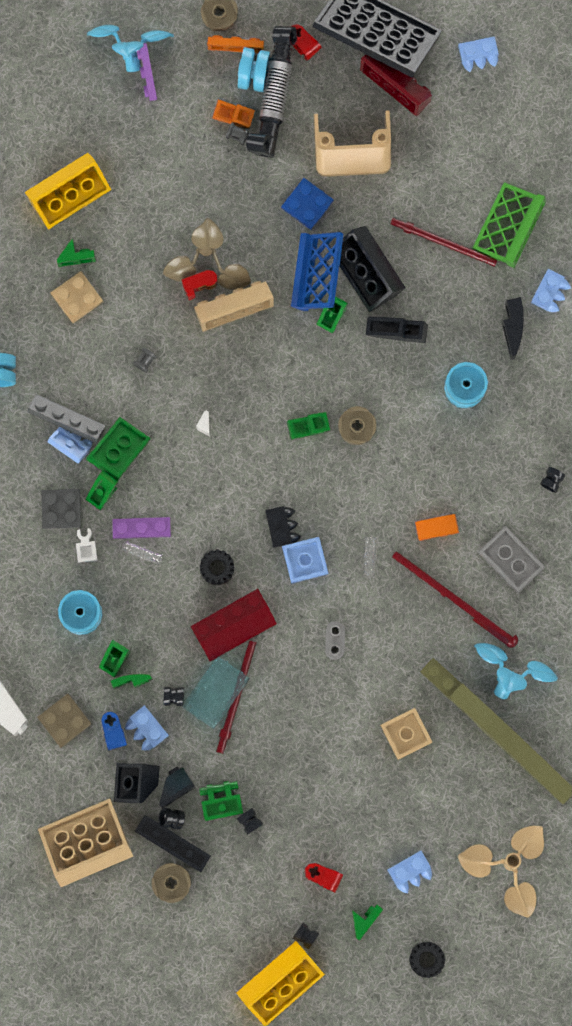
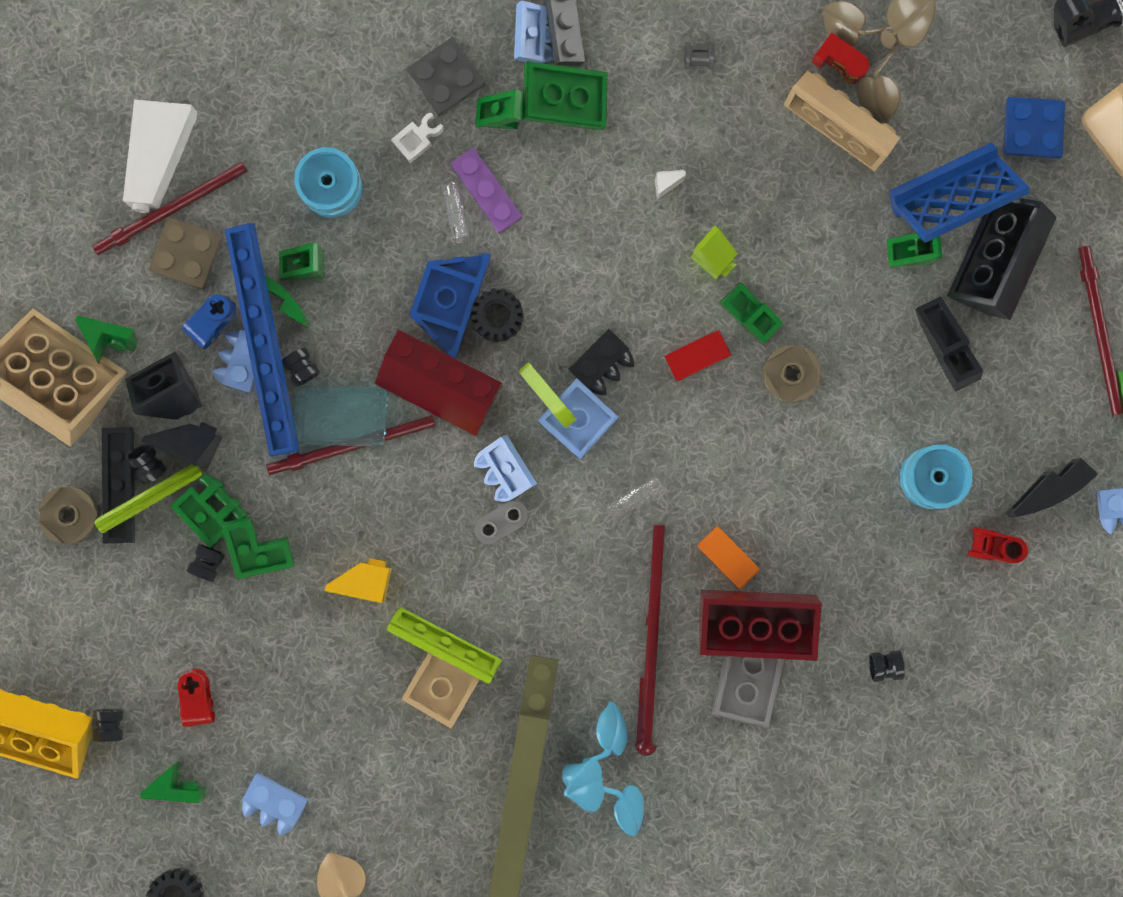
camera: 55 degrees right, 5 degrees up
(30, 751) = (121, 235): none -> dark red bar
(78, 799) = (100, 334): none -> green slope
(145, 707) = (262, 339): none -> blue tile
(189, 588) = (447, 299): none -> blue wing
(192, 829) = (147, 498): none -> lime axle
(262, 792) = (249, 555): none -> green plate
(263, 424) = (715, 254): none -> lime slope
(283, 567) = (547, 395): none -> lime beam
(307, 618) = (505, 468): none -> light blue plate
(313, 470) = (698, 355): none -> red slope
(318, 738) = (363, 581): none -> yellow slope
(383, 716) = (444, 645): none -> lime tile
(484, 534) = (759, 625): none -> dark red slope
(523, 379) = (992, 546): none -> red piece

